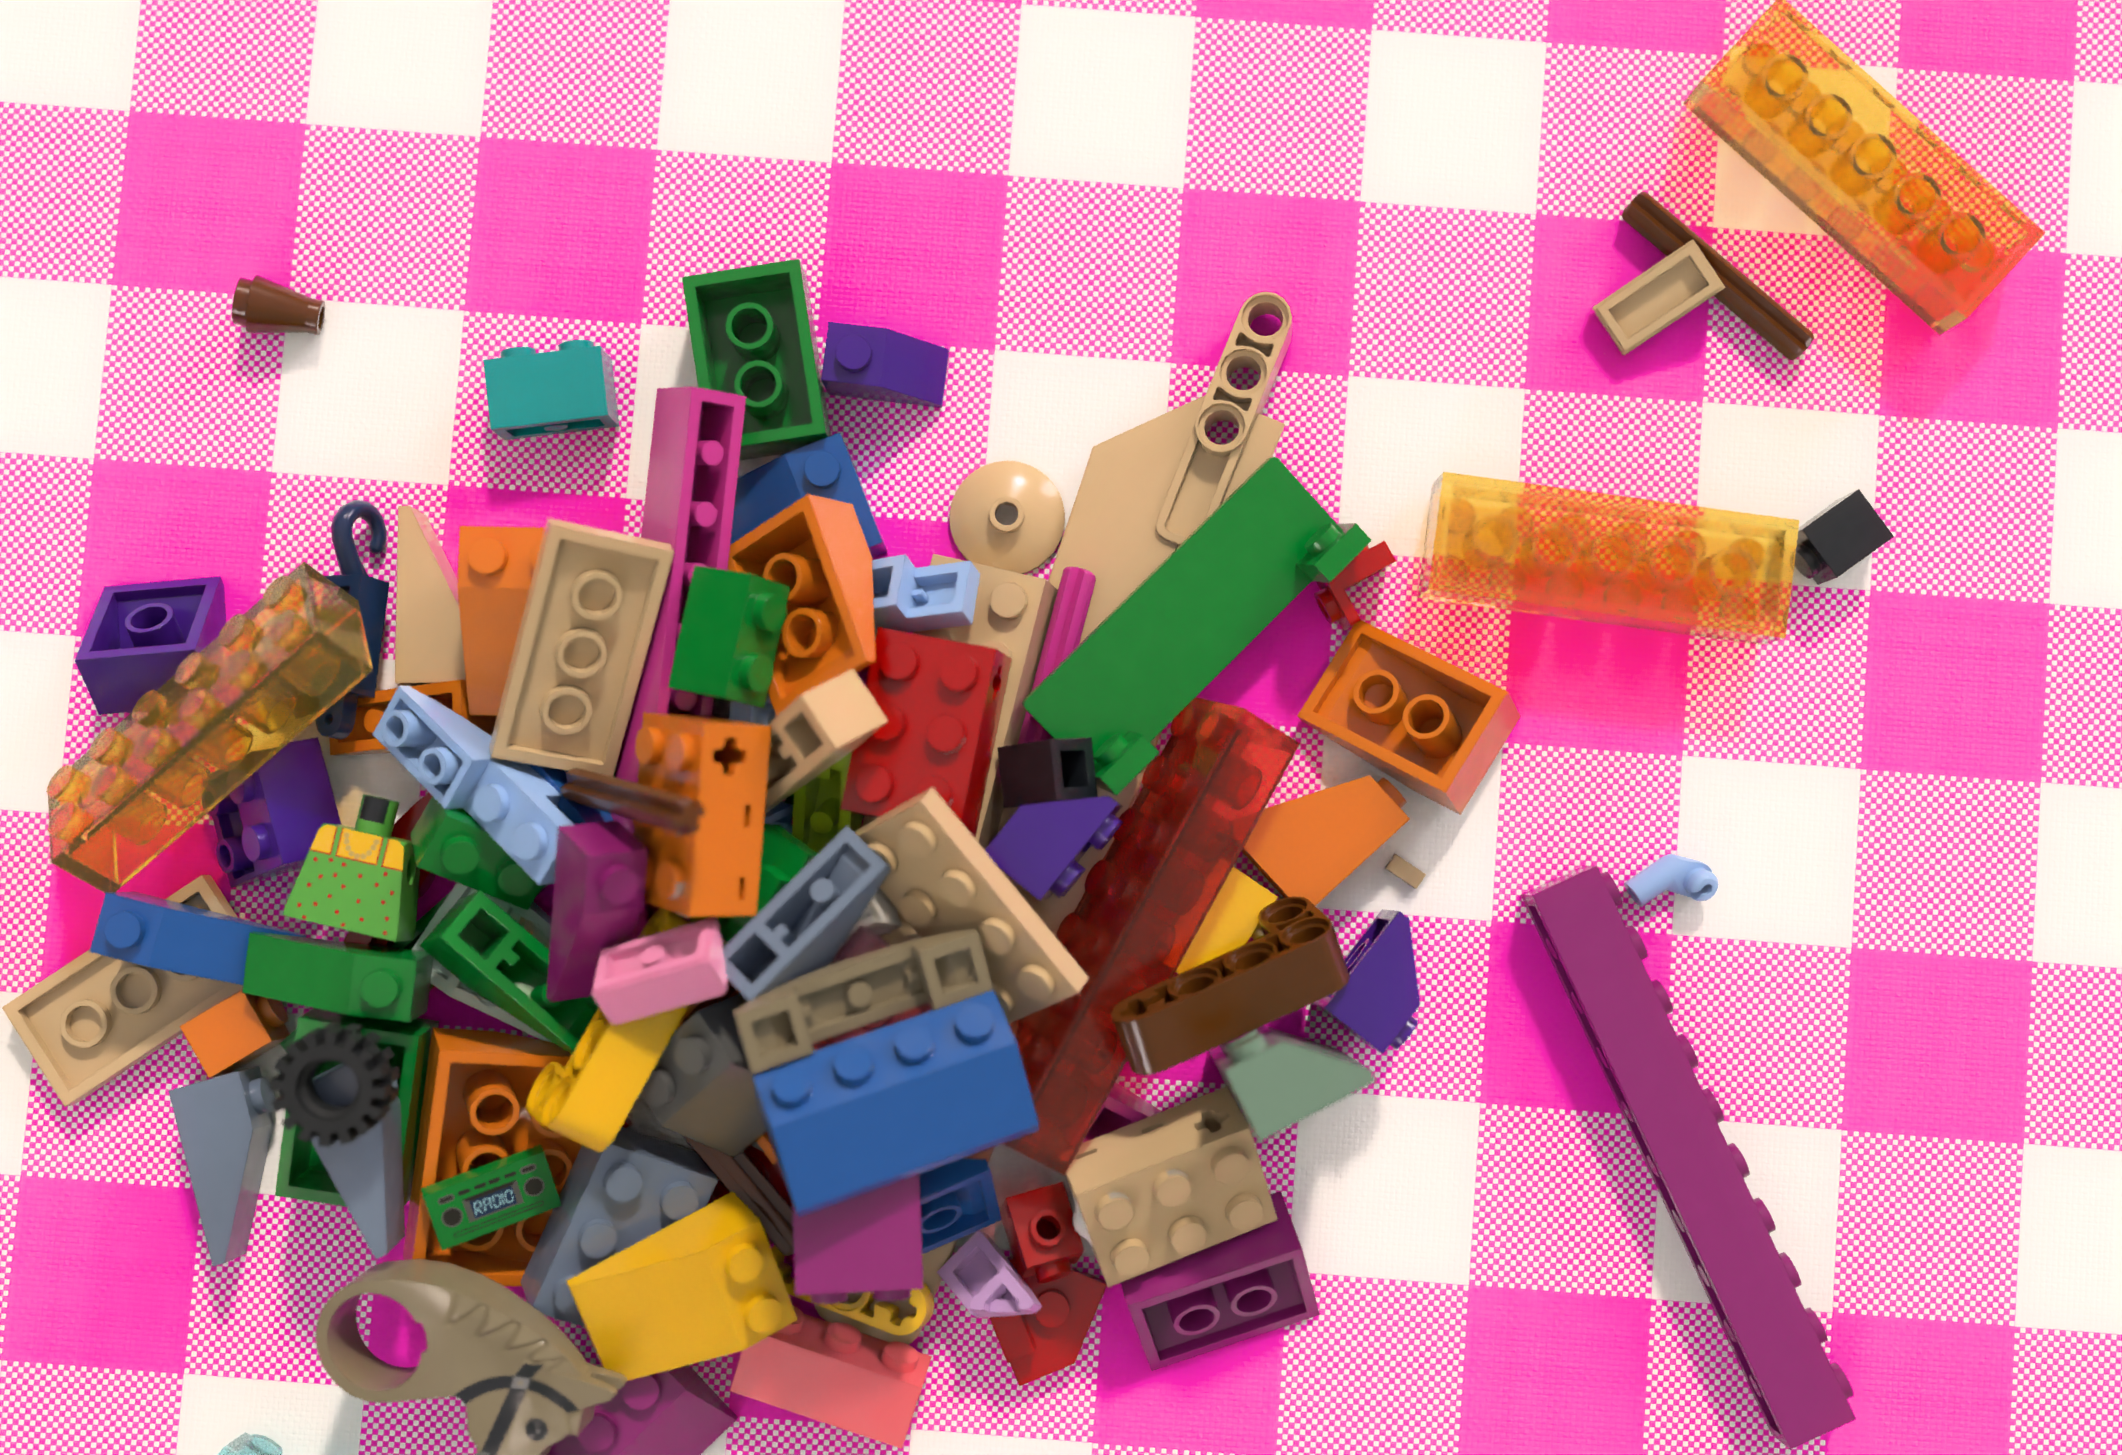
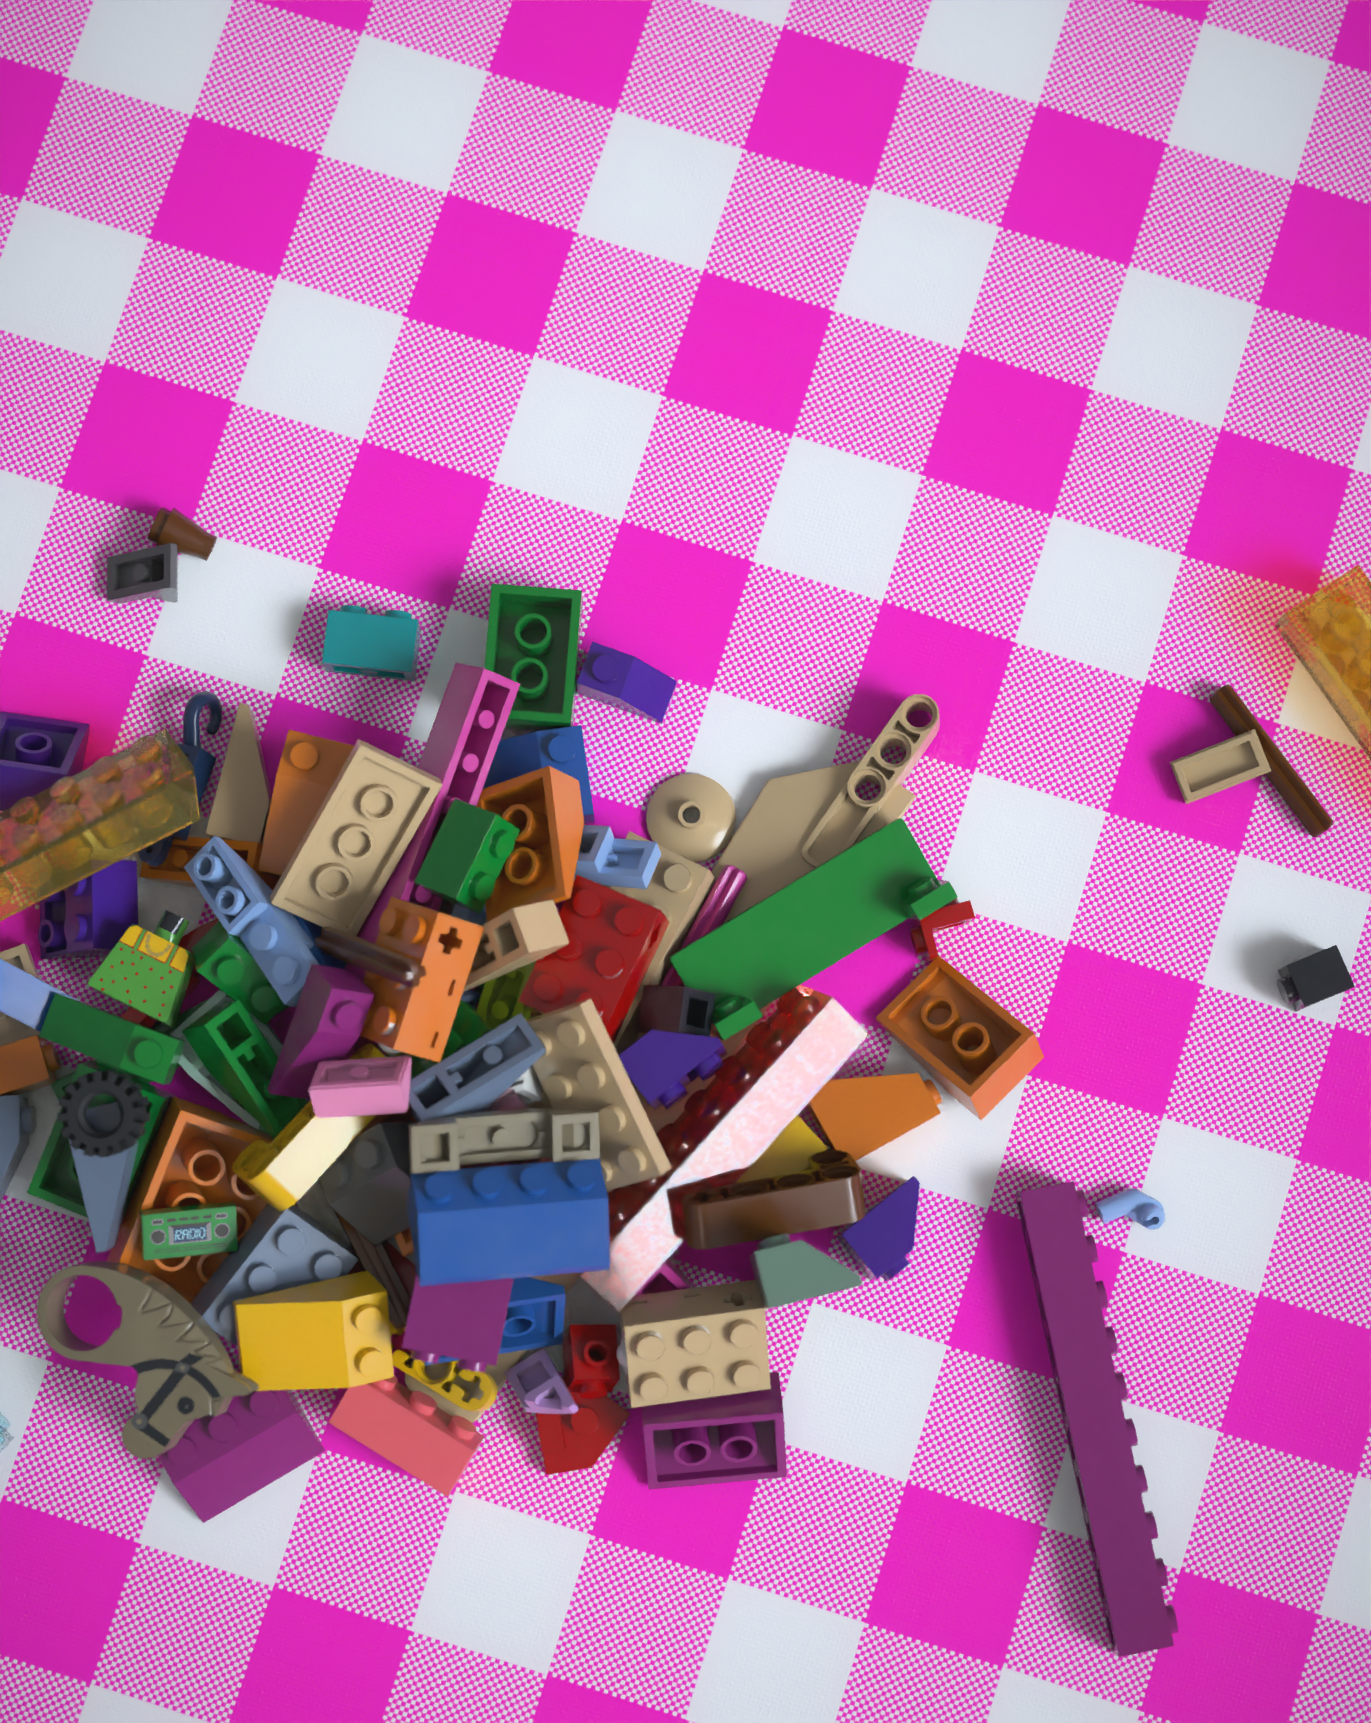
camera: 10 degrees right, 5 degrees down
(242, 368) = (143, 575): none -> dark grey slope
(1405, 871) = (933, 1158): tan piece -> none
(1608, 559) = (1135, 953): brick -> none

